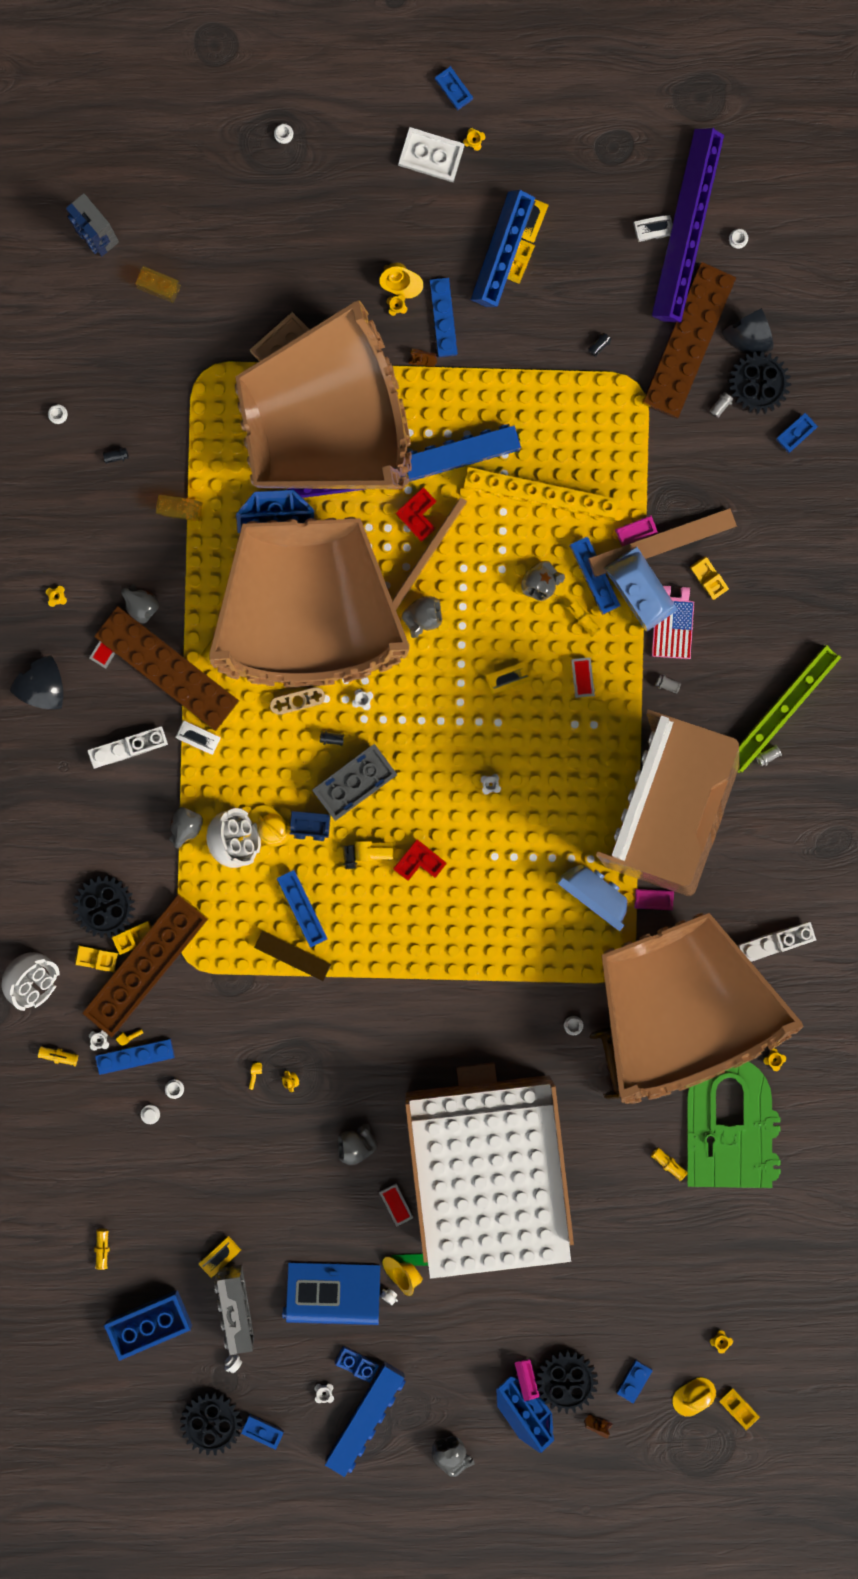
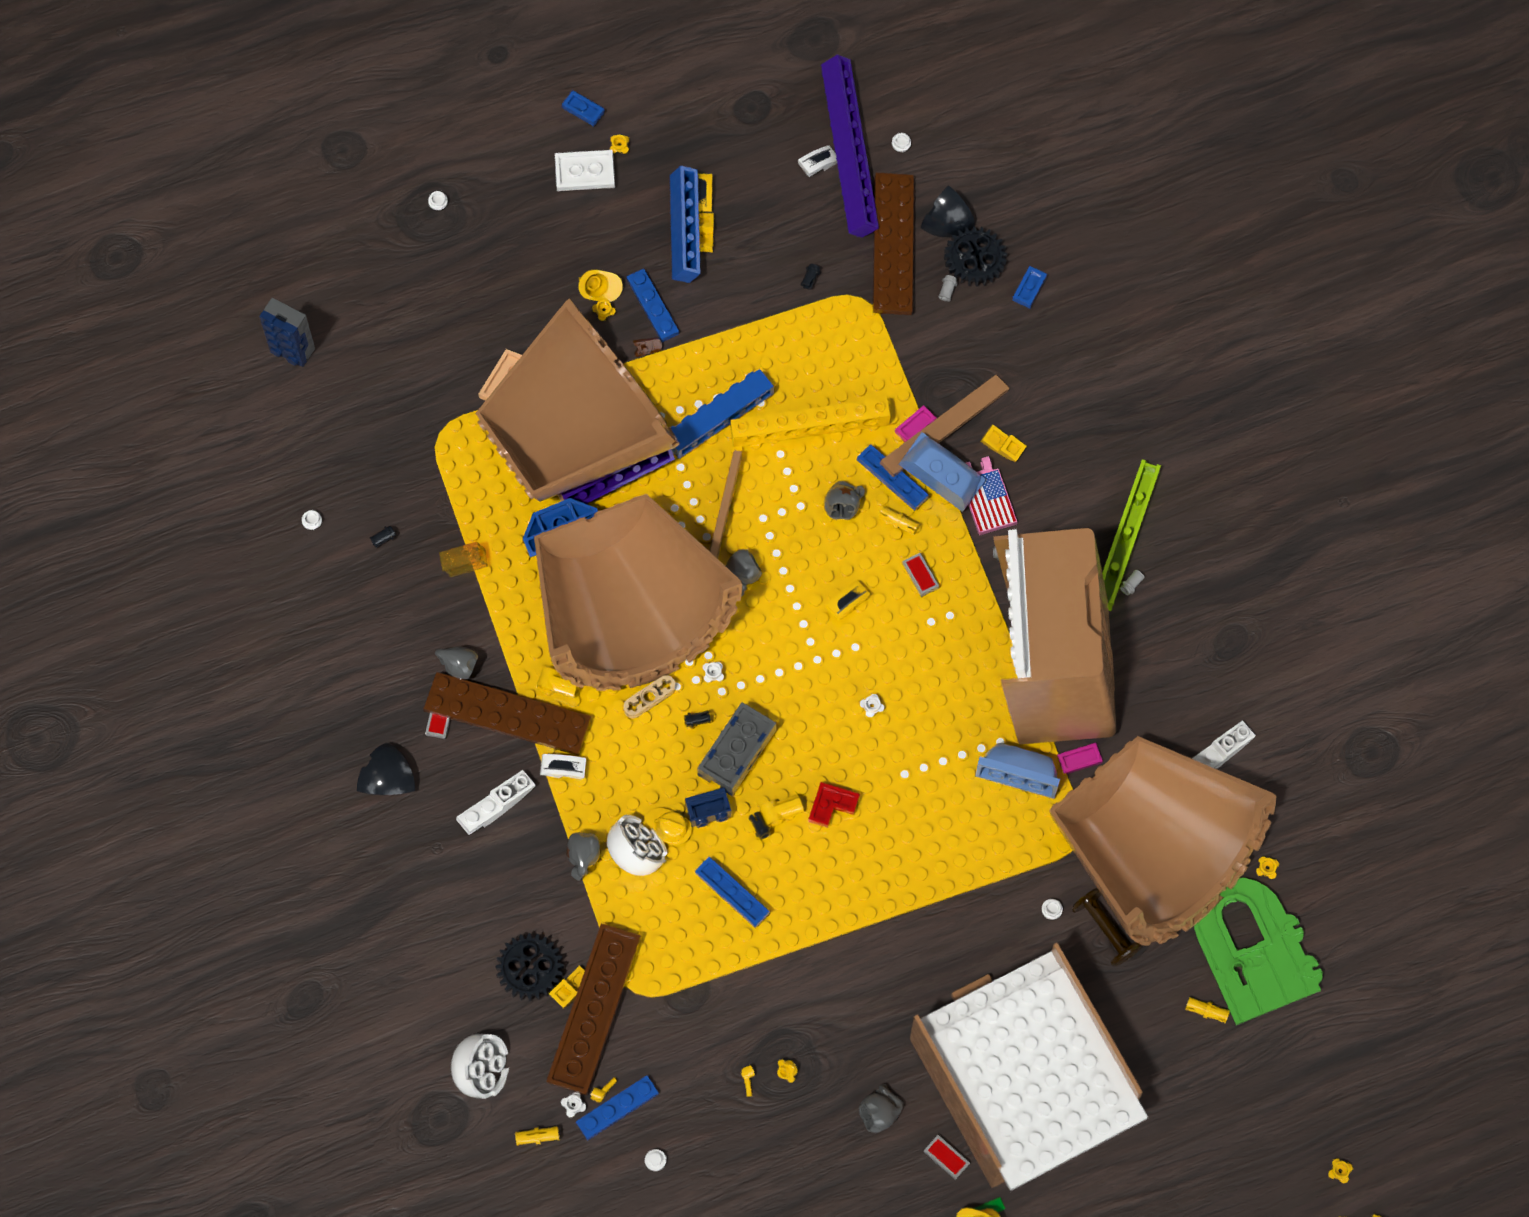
camera: 25 degrees left, 20 degrees down
(61, 596) = (372, 681): yellow plate -> none
(96, 958) = (540, 1023): yellow slope -> none
(158, 284) = (367, 369): clear yellow hinge -> none
(174, 1088) = (670, 1124): white plate -> none
(292, 955) = (740, 943): dark brown tile -> none
(412, 514) = (694, 484): red plate -> none

